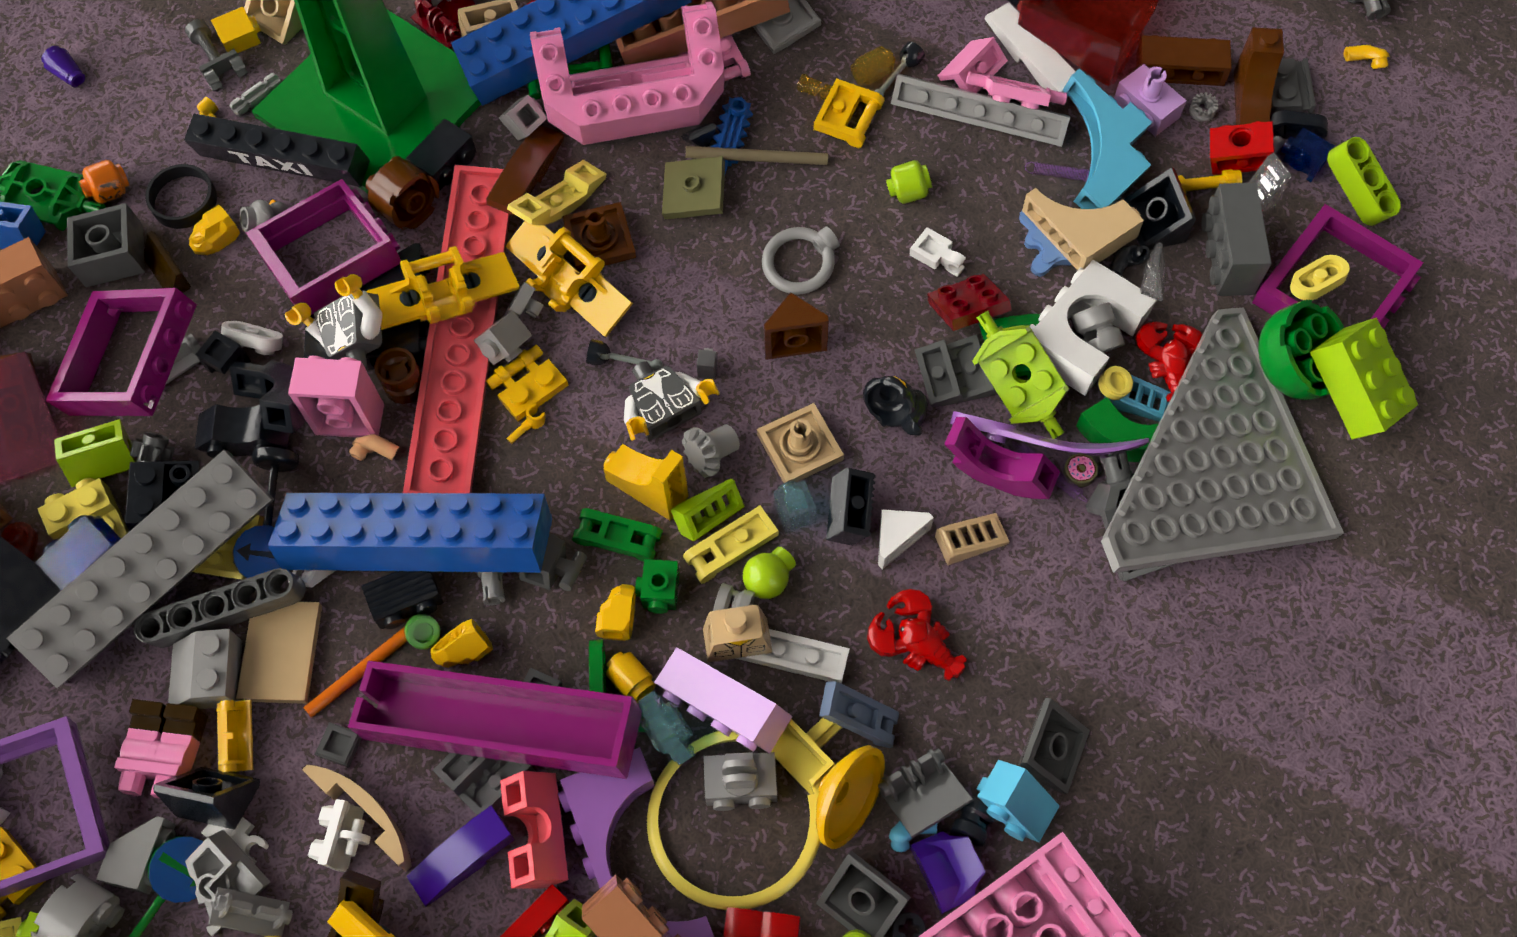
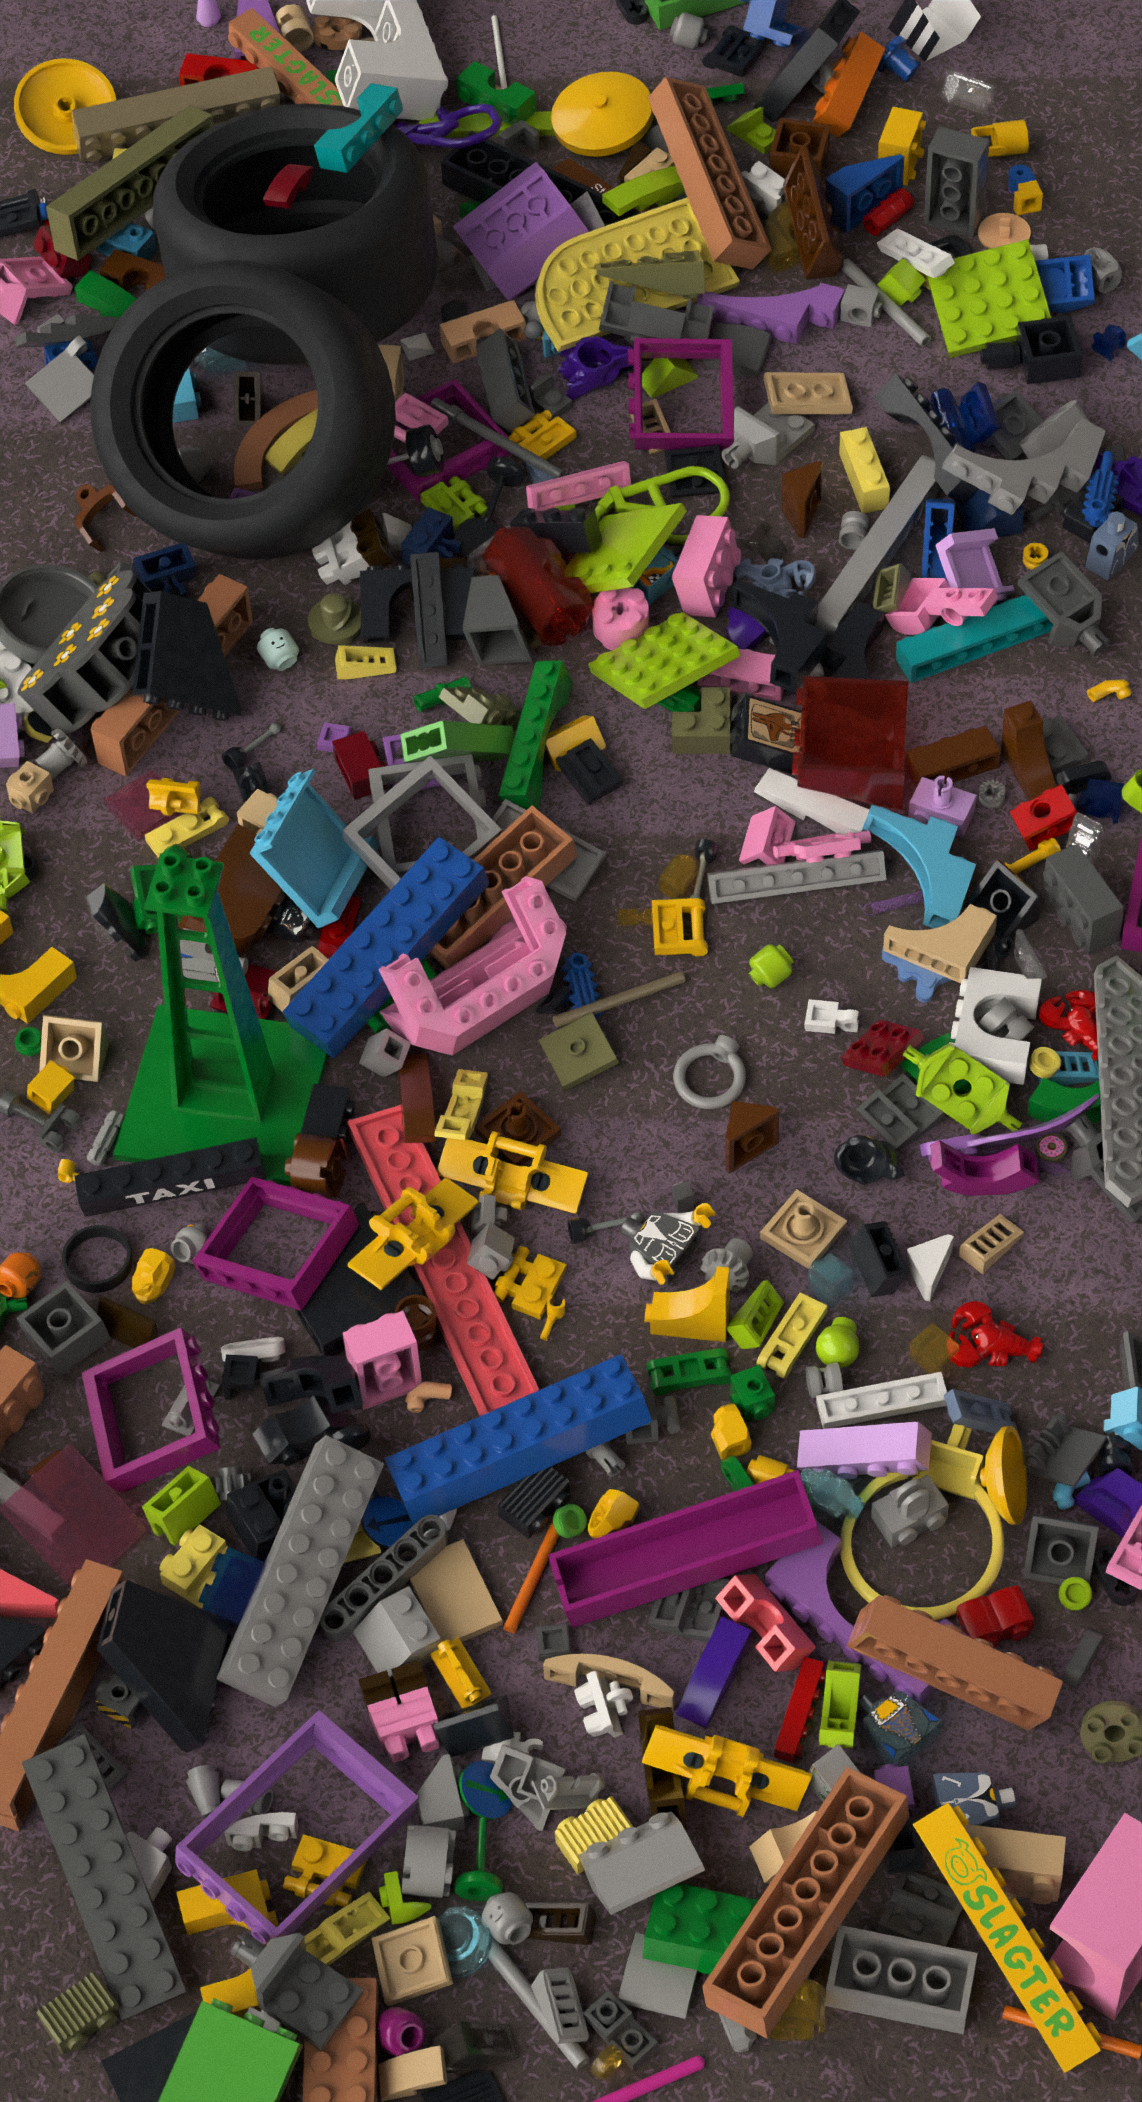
camera: 25 degrees left, 10 degrees down
(346, 325) = (357, 1294): torso -> none
(736, 633) = (847, 1392): tan torso -> none
(854, 621) = (932, 1349): none -> clear yellow panel

